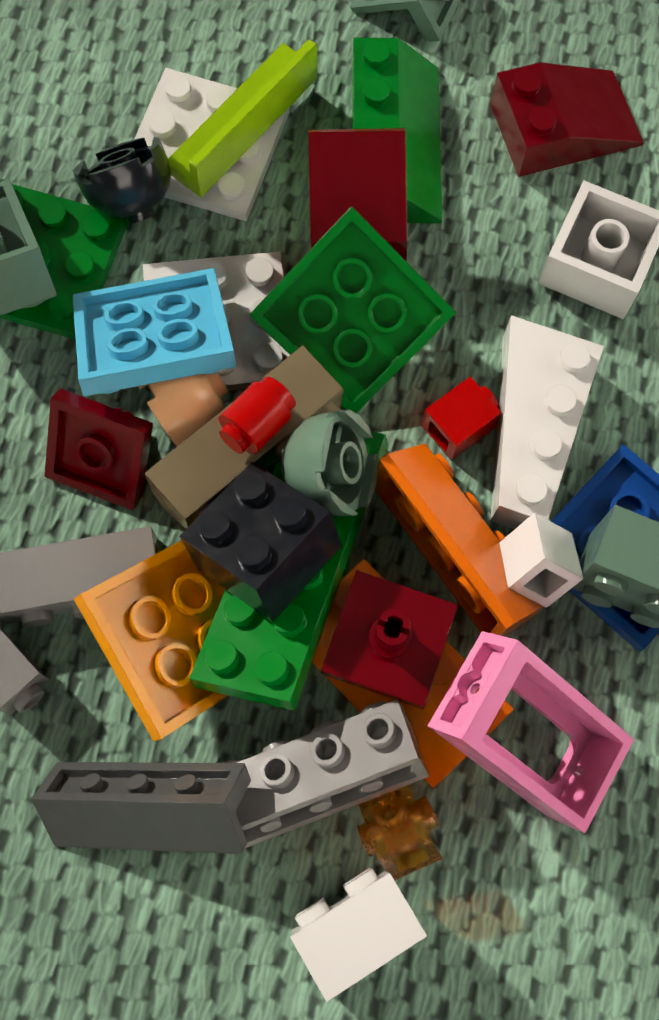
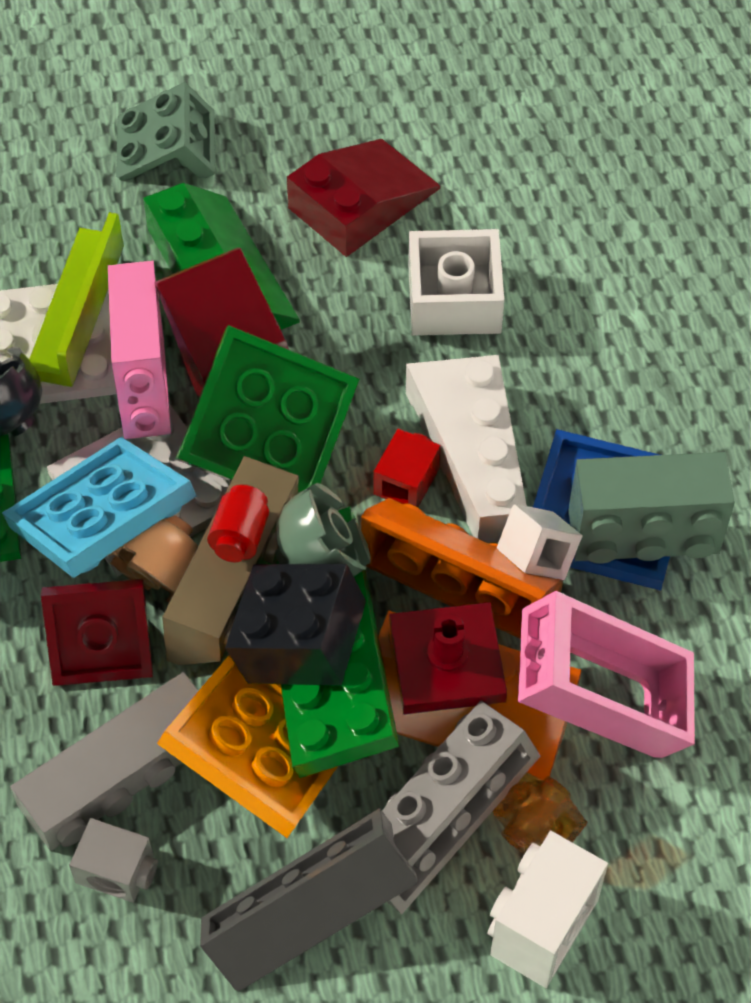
camera: 25 degrees left, 15 degrees down
(265, 191) = (138, 350): none -> bright pink piece

